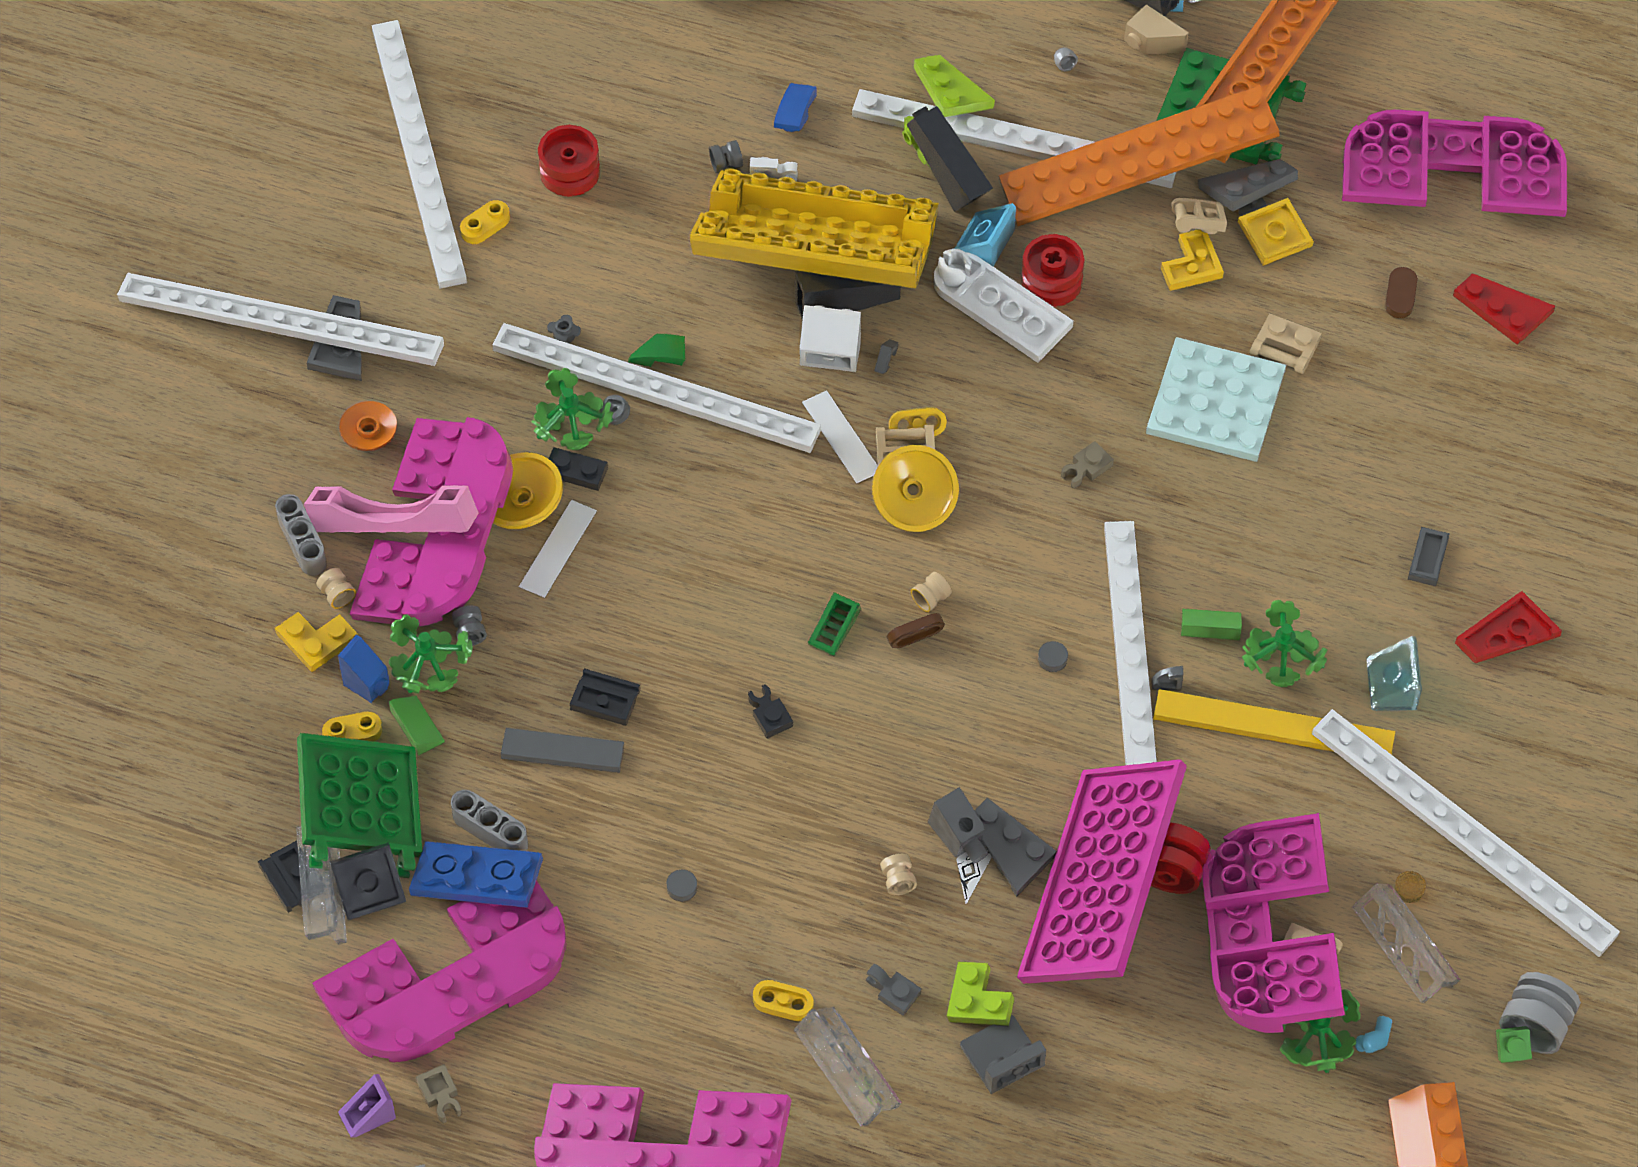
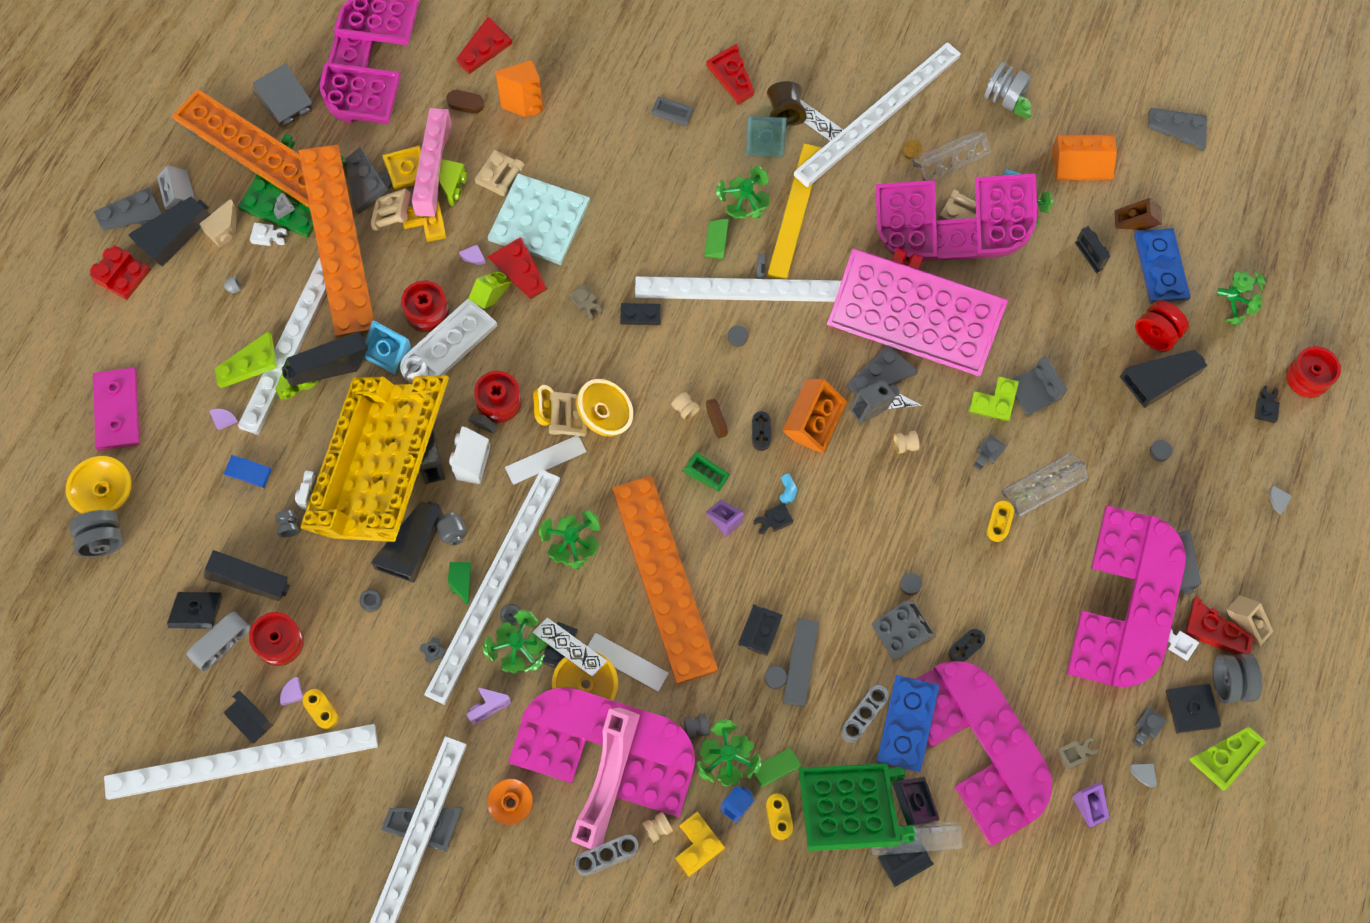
camera: 90 degrees left, 10 degrees up
(474, 150) = (247, 717): none -> black panel
(492, 395) = (493, 703): none -> lavender slope
(506, 189) = (291, 692): none -> lavender tile
(540, 719) = (775, 677): none -> dark grey tile
(566, 104) = (218, 641): none -> light grey beam
(566, 466) = (569, 646): none -> white sticker
(597, 952) = (963, 642): none -> black beam
(604, 75) = (194, 610): none -> black plate
(615, 876) = (903, 629): none -> dark grey bracket
(629, 259) = (370, 600): none -> dark grey tile
(650, 118) = (245, 576): none -> black slope
(675, 582) = (664, 580): none -> orange plate
(705, 457) = (570, 529): none -> bright green plant
(707, 290) = (411, 545): none -> black slope
(729, 333) = (451, 528): none -> dark grey head
(765, 649) = (725, 517): none -> medium lavender slope
(813, 729) = (790, 489): none -> medium azure arm
(869, 73) = (222, 418): none -> lavender tile
(903, 691) = (756, 431): none -> black beam
(923, 365) = (497, 396): none -> red wheel
(930, 754) = (815, 415): none -> orange slope
(1075, 533) = (640, 314): none -> black plate
(1090, 344) = (489, 289): none -> lime slope
(1129, 378) = (519, 267): none -> red wing
(1145, 324) = (472, 255): none -> lavender tile
(1148, 86) = (264, 234): none -> white plate
(1187, 93) = (282, 206): none -> light grey tile
(1230, 247) = (427, 179): none -> bright pink arch
(1253, 1137) = (1092, 249): none -> black plate
(1258, 283) = (451, 178): none -> lime slope
(1367, 72) = (282, 95): none -> dark grey slope
(1416, 346) = (520, 89): none -> orange slope
(1451, 746) = (820, 122): none -> white sticker
(1454, 696) = (786, 102): none -> dark brown hat

